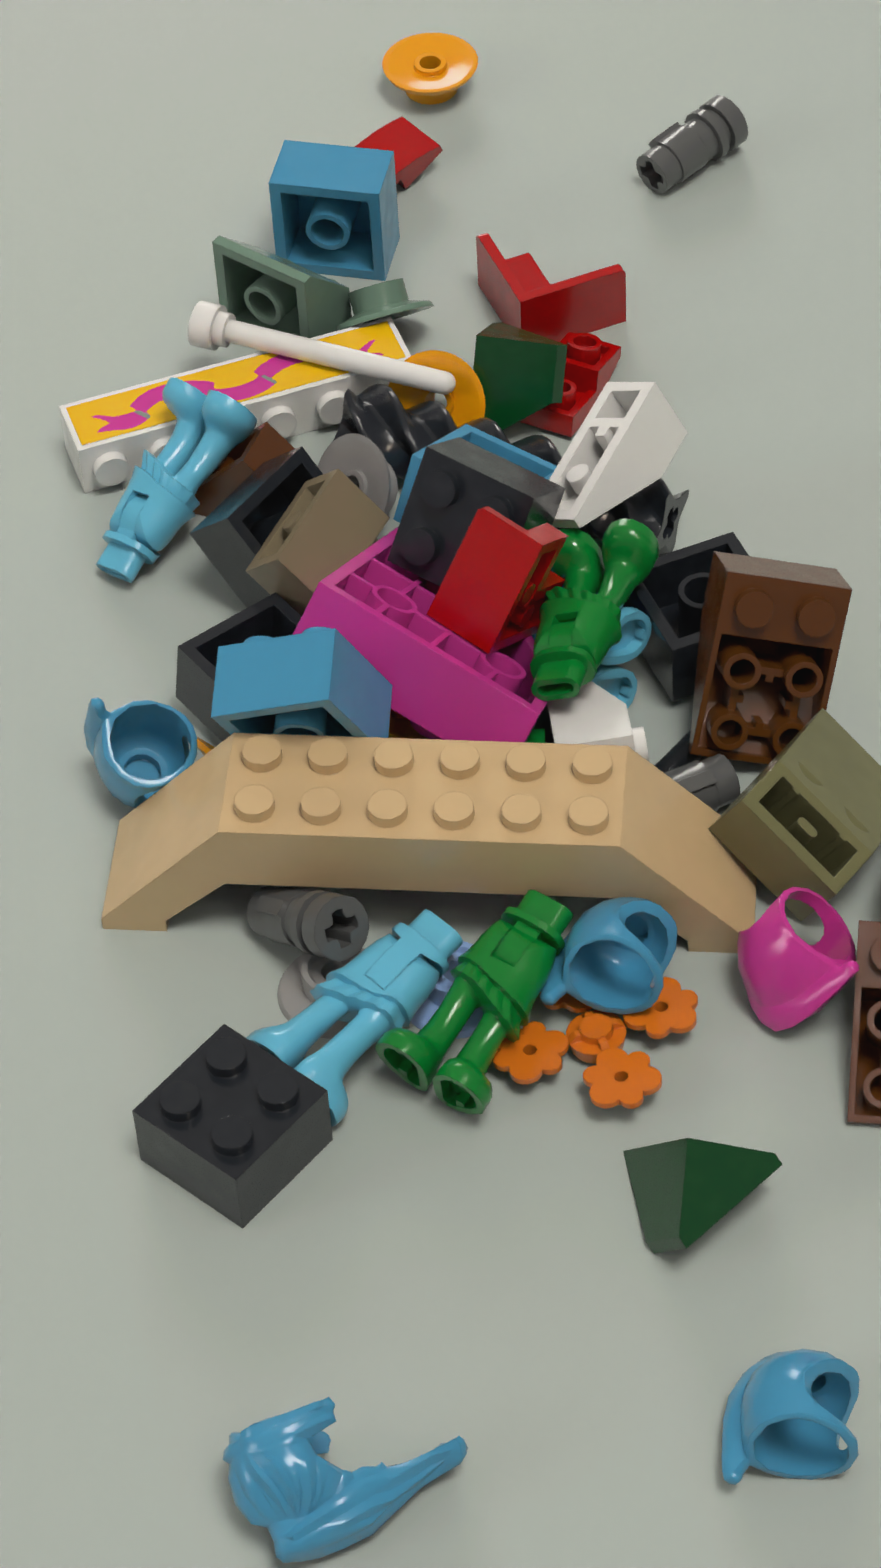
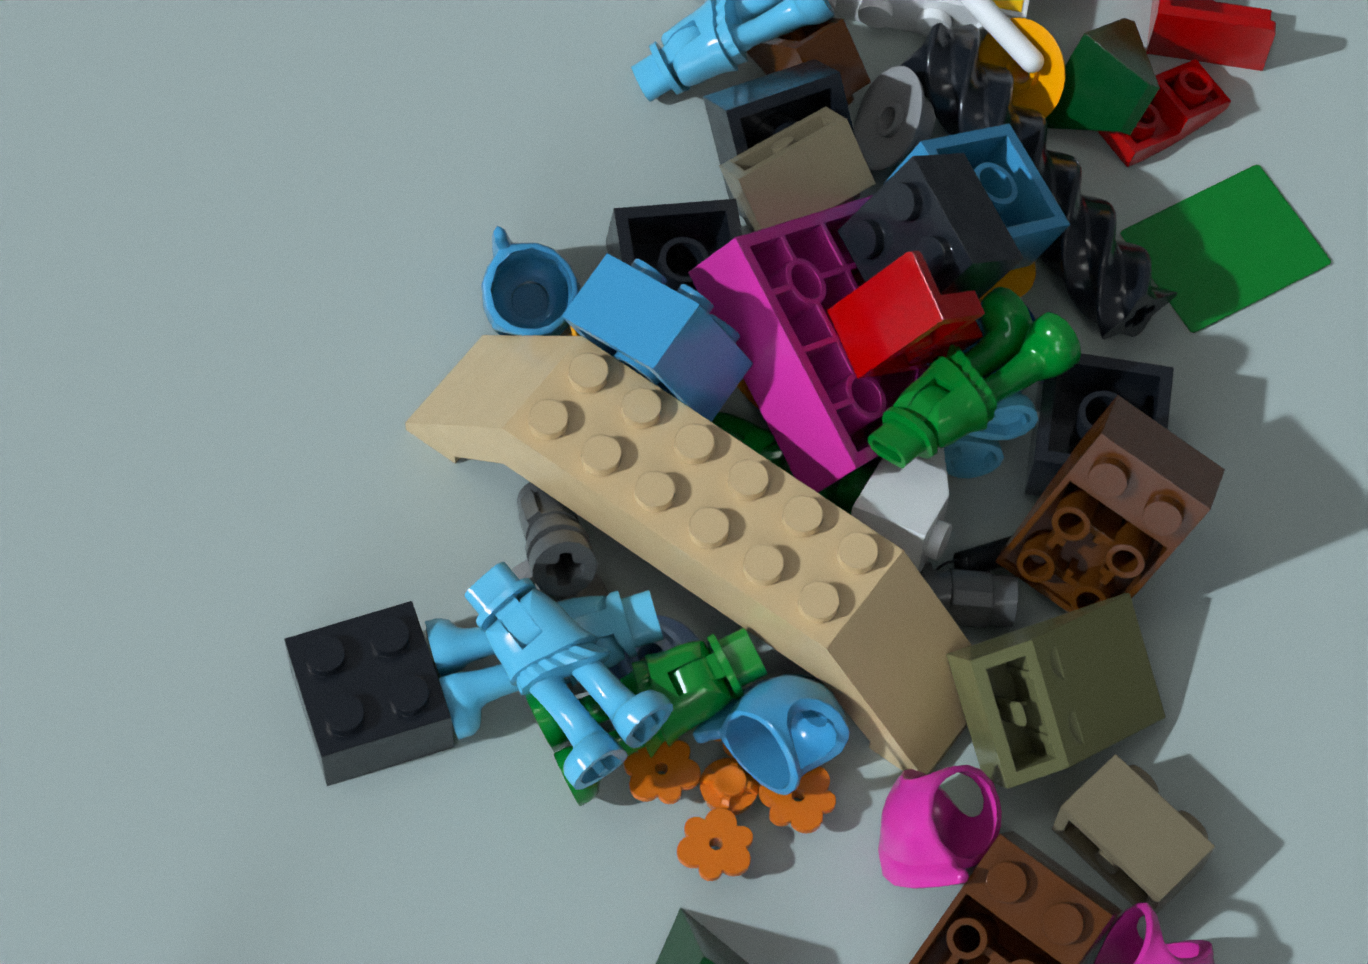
camera: 25 degrees right, 15 degrees up
(377, 983) = (545, 647): none -> medium azure piece
(616, 451) = (1103, 239): white slope -> none
(717, 453) = (1227, 247): none -> green sticker

